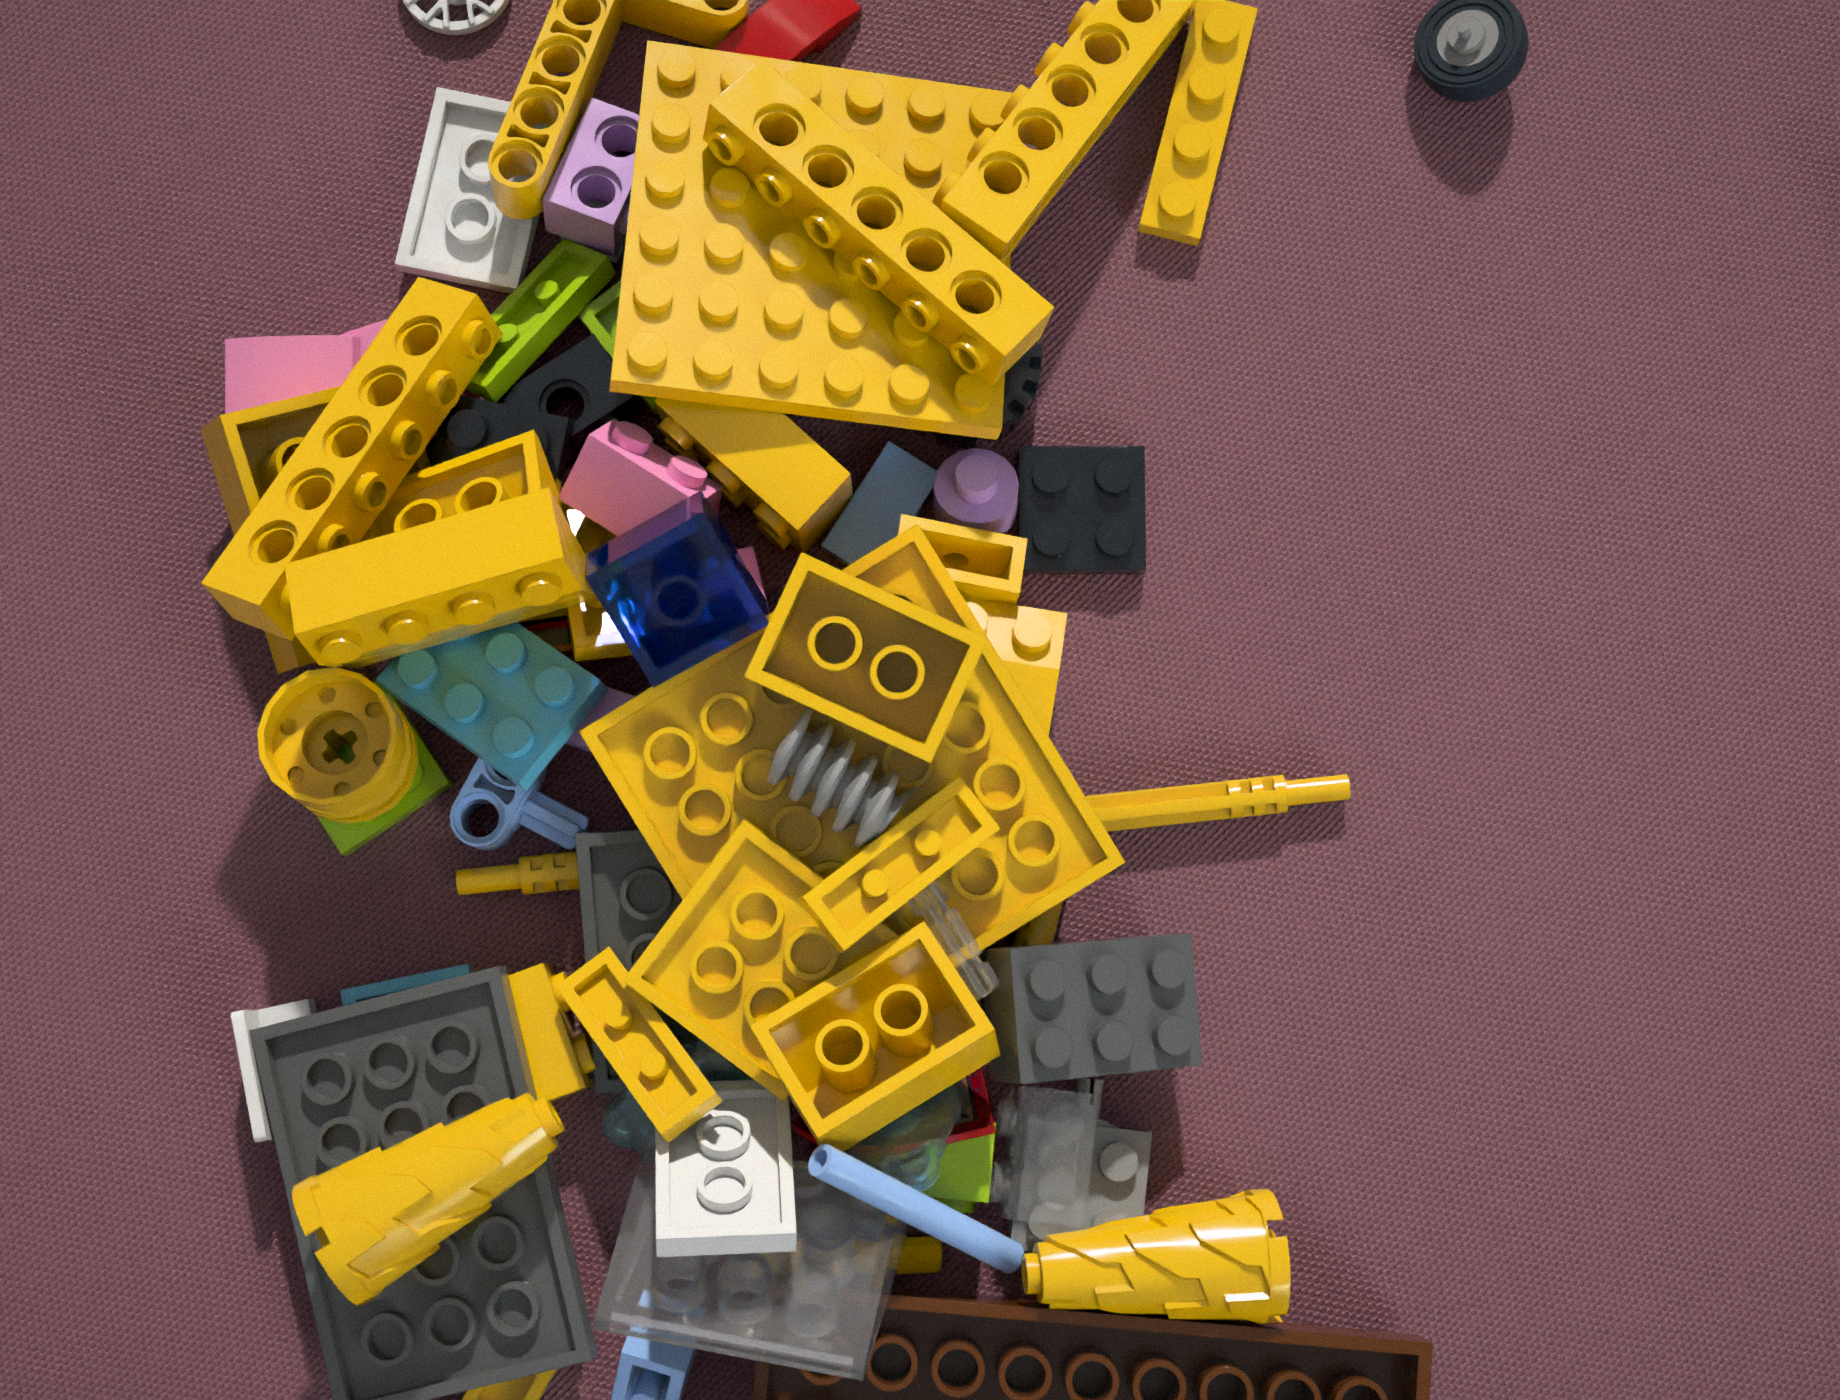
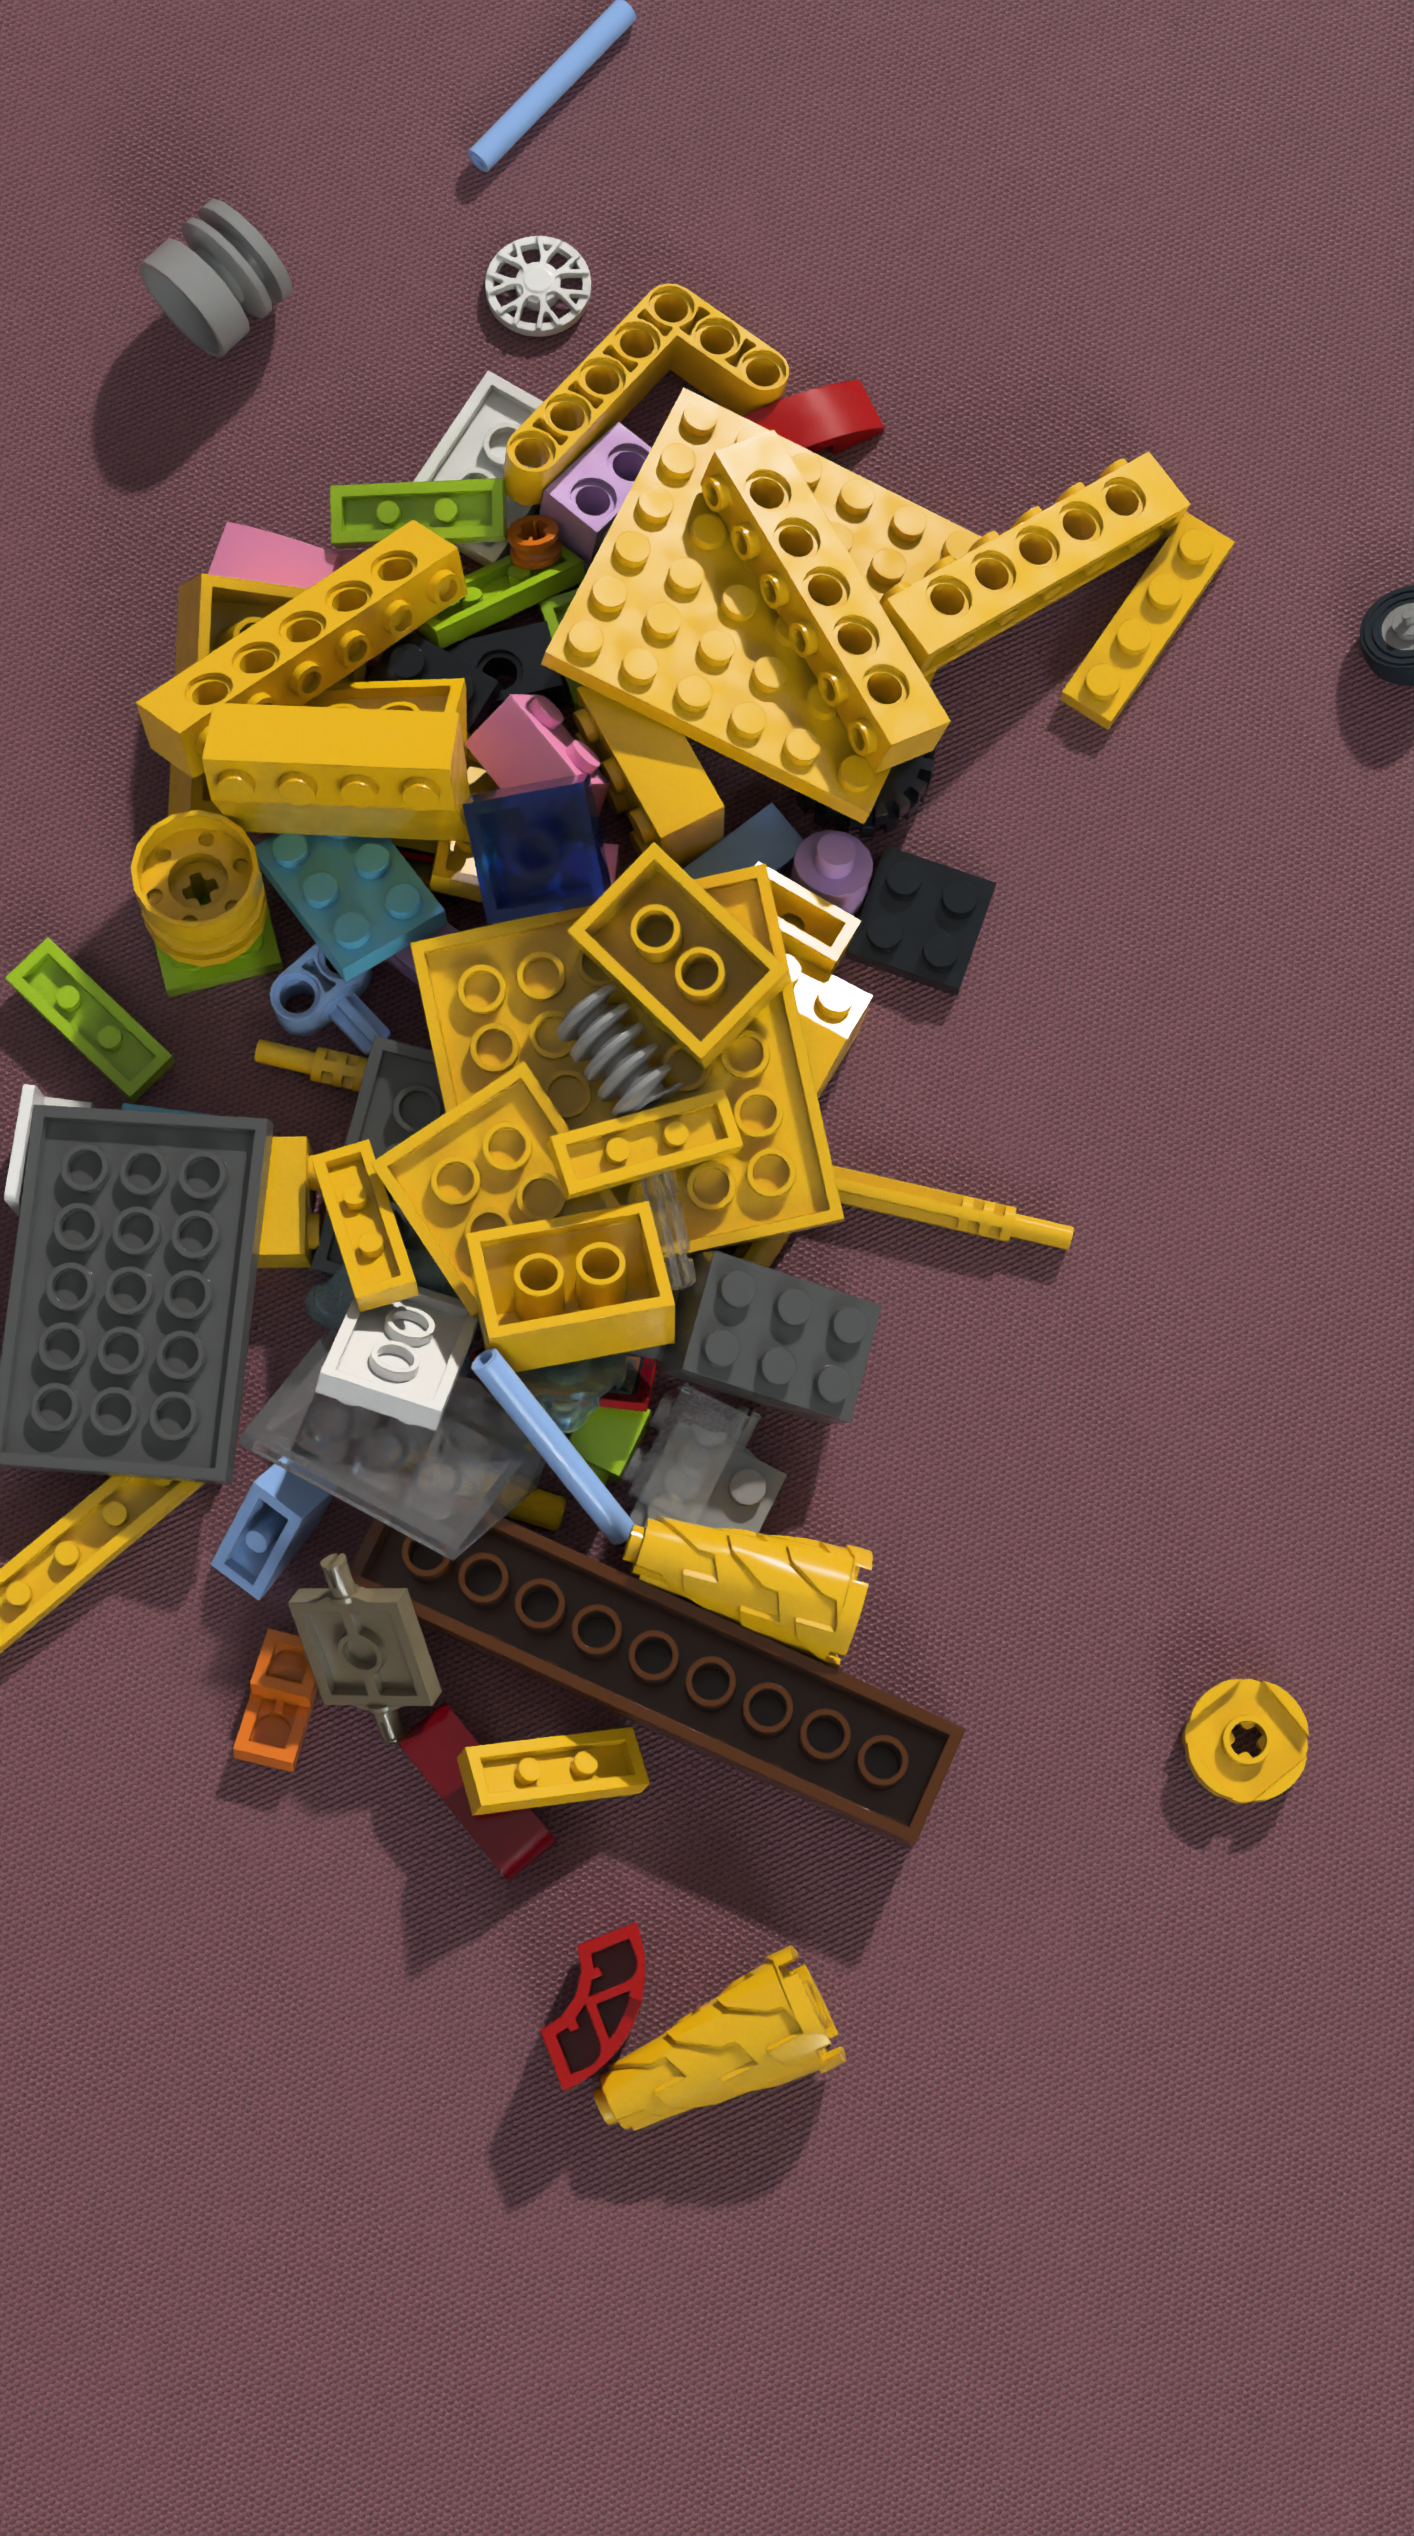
camera: 20 degrees right, 5 degrees down
(123, 79) = (215, 278): none -> light grey wheel
(274, 912) = (90, 1020): none -> lime plate
(398, 1203) = (109, 1282): yellow cone -> none
(444, 252) = (450, 508): none -> lime plate
(550, 253) = (534, 542): none -> orange bush
(1738, 1229) = (1281, 1746): none -> yellow plate

